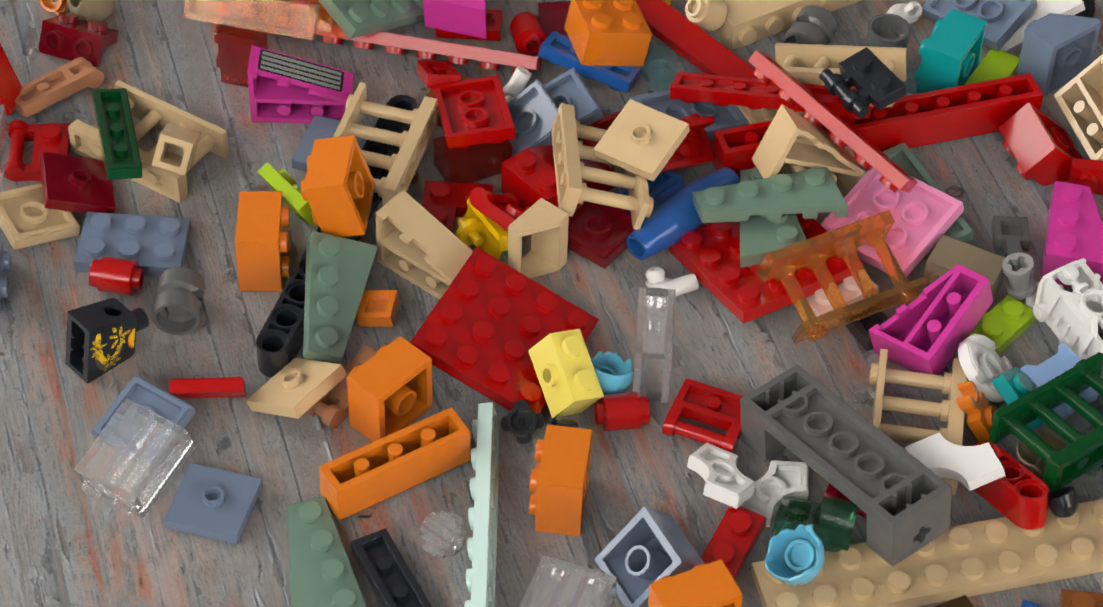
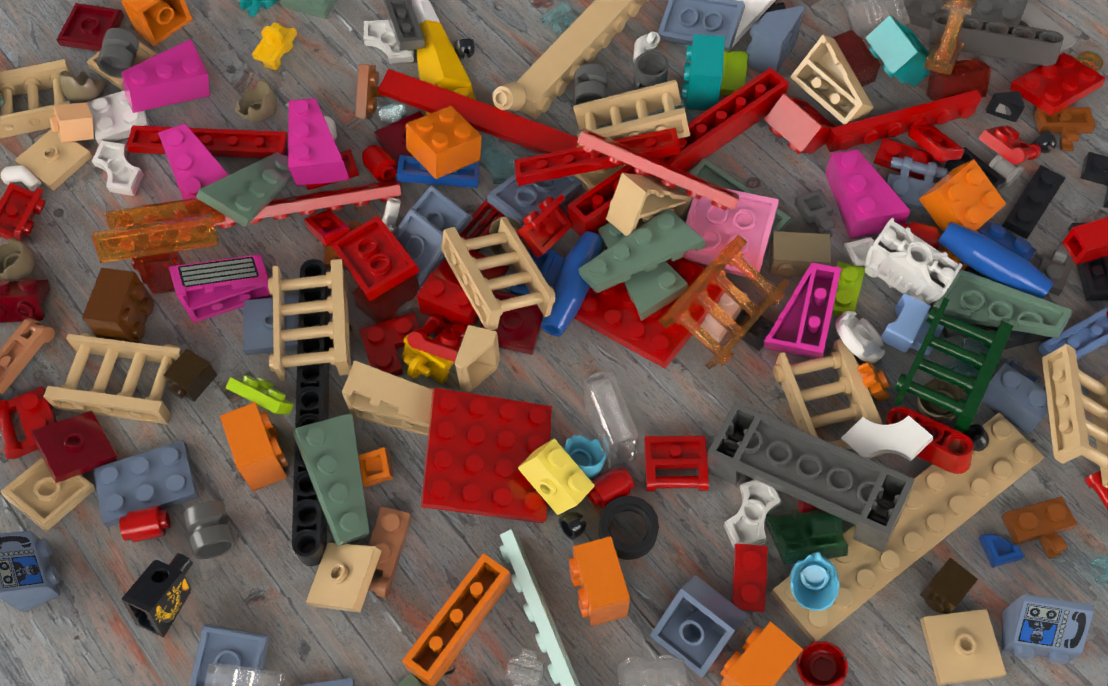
camera: 20 degrees left, 15 degrees up
(117, 134) = (89, 390): dark green tile -> none
(176, 149) = (146, 387): tan brick -> none
(182, 69) = (118, 306): none -> reddish brown brick
(208, 387) = (269, 606): red tile -> none
(225, 162) = (189, 375): none -> dark brown brick
(338, 186) = (300, 379): orange brick -> none
(390, 390) = (422, 552): orange brick -> none
(522, 411) = (540, 538): black plate -> none
(626, 475) = (636, 505): none -> black tyre
(641, 140) = (523, 241): tan plate -> none
(683, 284) = (589, 352): white arm -> none
(721, 475) = (722, 526): white tile -> none
(870, 77) = (672, 121): black plate -> none
(1014, 385) = (893, 350): teal plate -> none
(1019, 269) = (846, 237): light grey bush -> none

